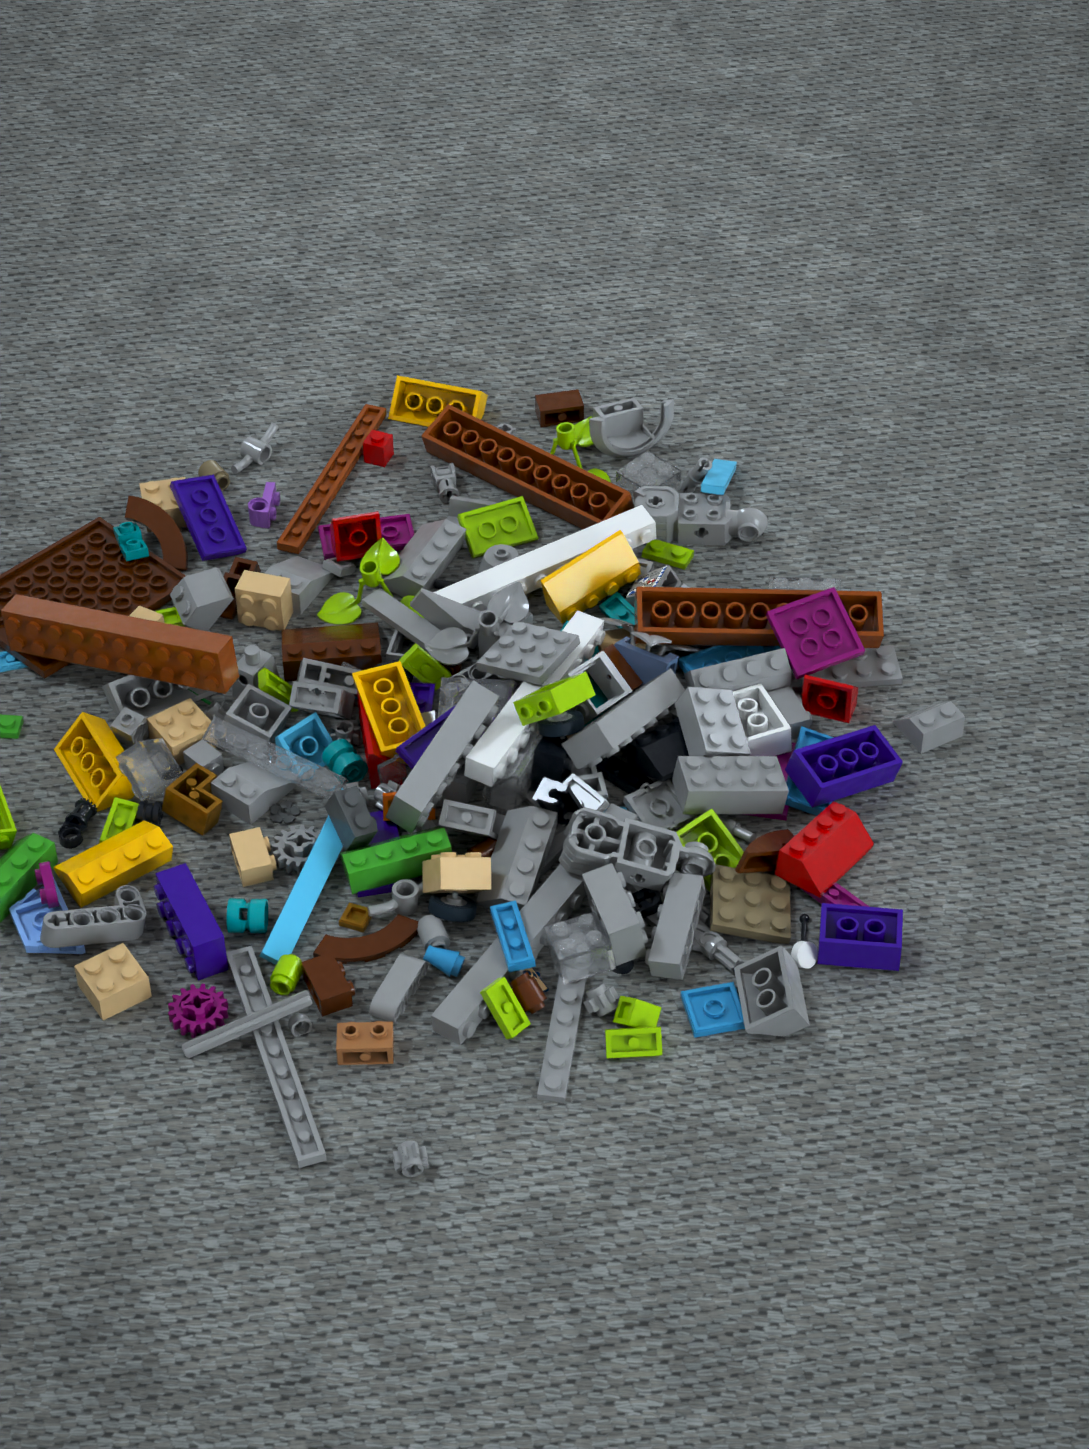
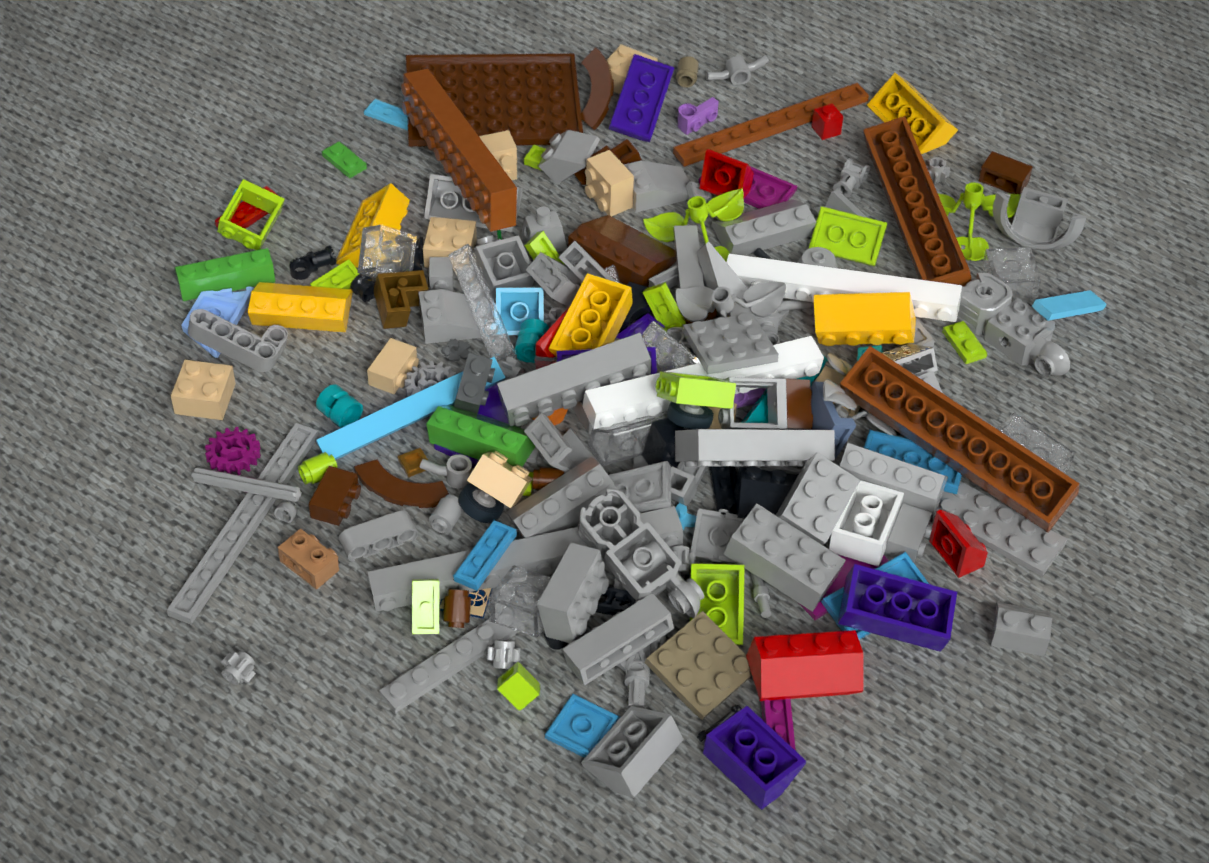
camera: 40 degrees right, 5 degrees up
(48, 893) = (235, 291): magenta plate -> none
(130, 541) = (571, 83): teal slope -> none
(130, 727) = (417, 217): light grey brick -> none
(190, 922) = (292, 382): dark purple brick -> none
(445, 960) = (431, 539): dark azure cone -> none
(556, 798) = (622, 472): black hinge -> none
(633, 1042) = (490, 705): lime plate -> none
(696, 475) = (1052, 289): light grey pin -> none
(763, 852) = (742, 628): reddish brown slope -> none
(805, 954) = (695, 736): white tile -> none
(815, 632) = (985, 481): magenta plate -> none

